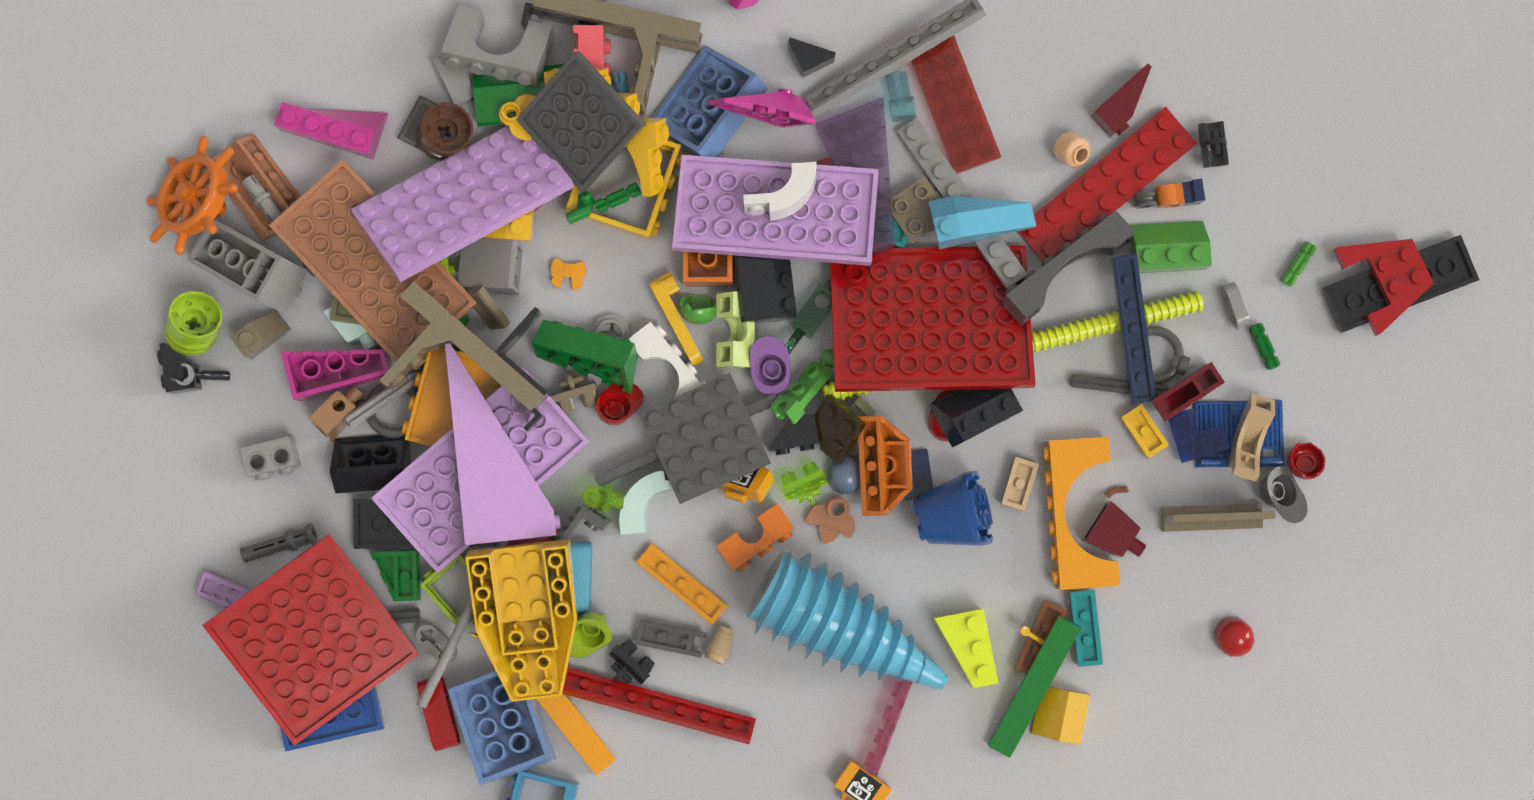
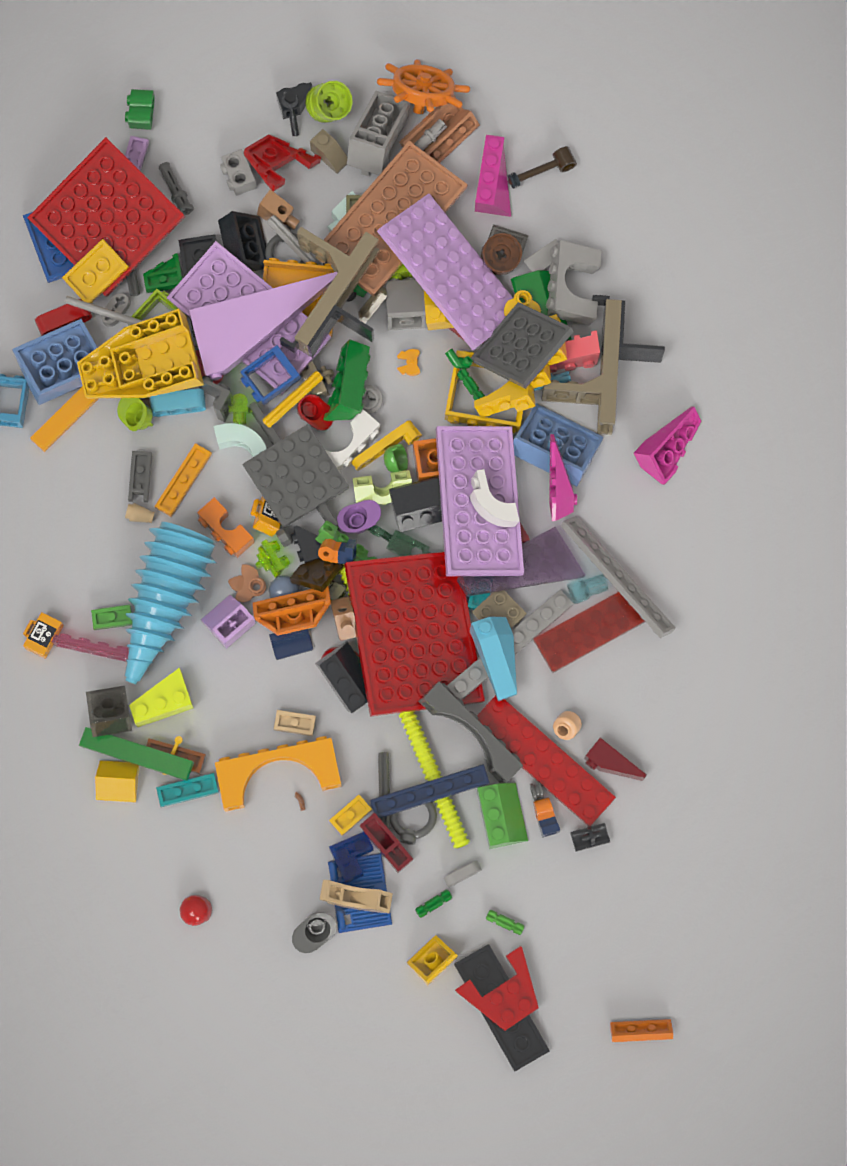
camera: 80 degrees right, 10 degrees down
(158, 576) = (140, 109): none -> green brick
(254, 410) = (273, 153): none -> red wing
(323, 33) = (562, 159): none -> dark brown piece
(325, 372) = (307, 200): dark pink wedge -> none
(386, 662) = (95, 272): none -> yellow tile
(556, 428) = (280, 356): none -> blue window
(601, 427) = (292, 399): none -> yellow axle
(638, 671) = (123, 443): black hips -> none
(658, 706) = (87, 474): red plate -> none
(779, 464) = (284, 537): none -> dark grey tile
(809, 57) = (605, 514): black slope -> none
(815, 397) = (338, 551): none -> leg
(851, 697) = (111, 617): none -> bright green plate
(878, 550) = (228, 621): none -> lavender slope
(910, 402) = (344, 620): none -> medium nougat torso
(955, 512) = (264, 673): blue cone -> none
(977, 714) = (108, 711): none -> clear smoke brick
(1114, 532) = (266, 801): dark red torso -> none
(1214, 517) = (289, 879): dark tan fence -> none
(1306, 461) = (344, 947): red hair -> none
(1335, 357) = (432, 960): none -> yellow slope
(1449, 123) = (641, 1030): none -> orange plate

